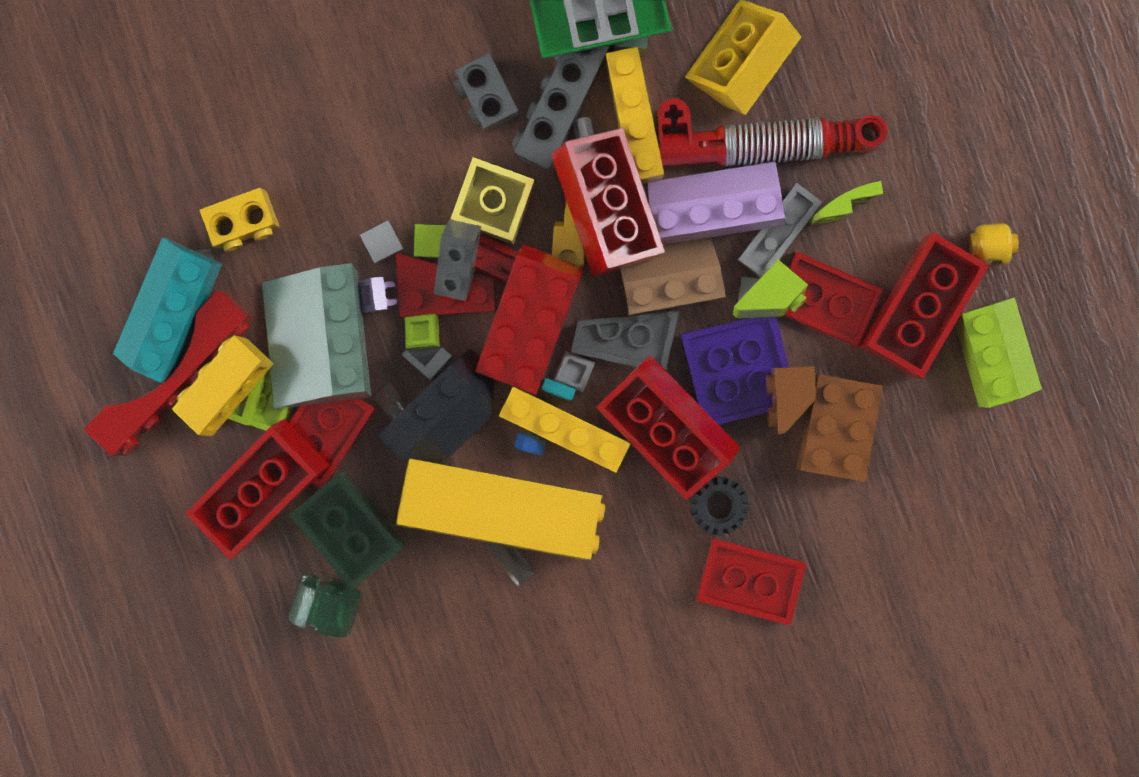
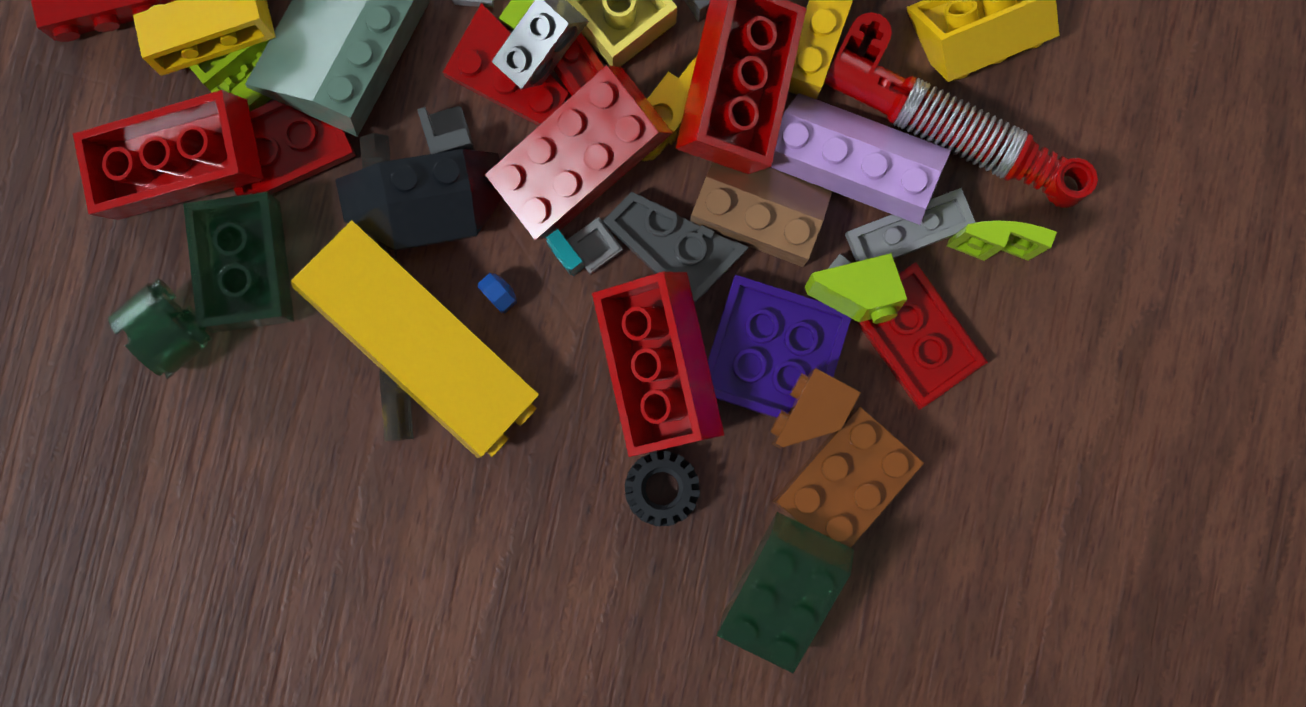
camera: 25 degrees right, 5 degrees down
(373, 294) = (428, 33): lavender tile -> none
(422, 332) = (456, 103): lime tile -> none
(564, 429) = (543, 298): yellow brick -> none
(751, 581) = (646, 595): red plate -> none
(843, 525) = (786, 592): none -> clear green brick
(924, 305) = (1022, 405): red brick -> none
(993, 243) = (1138, 385): yellow head -> none
(997, 353) = (1072, 507): lime slope -> none

